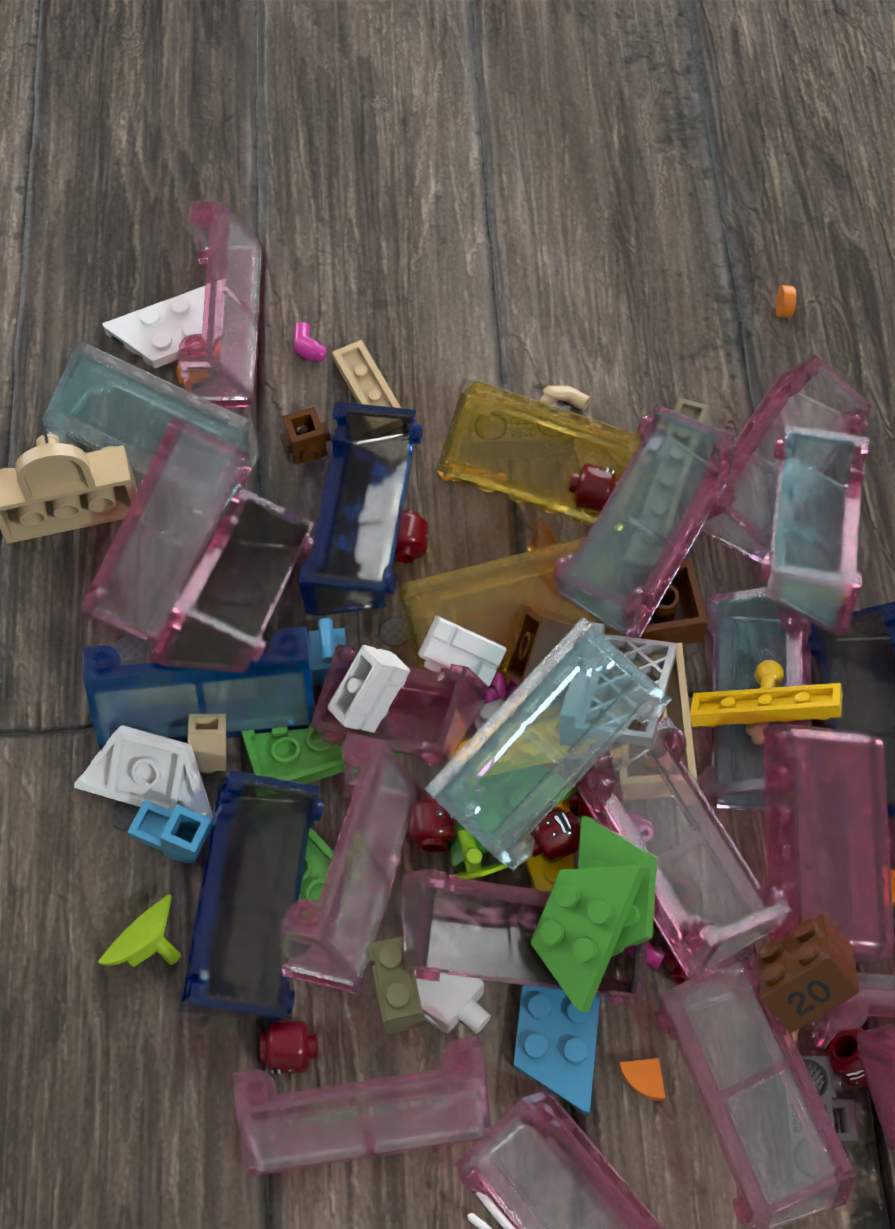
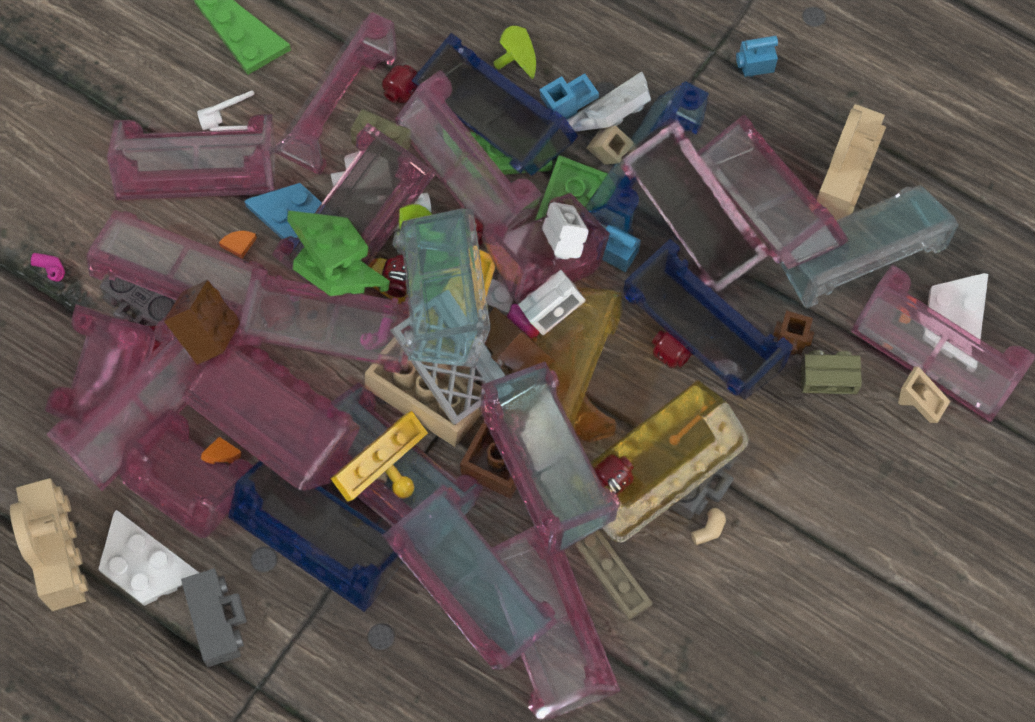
camera: 125 degrees right, 5 degrees up
(285, 305) = (924, 395): none -> tan slope
(306, 346) = (880, 389): dark pink arm -> none
(319, 384) = (831, 373): none -> olive brick
(363, 376) = (812, 405): tan plate -> none

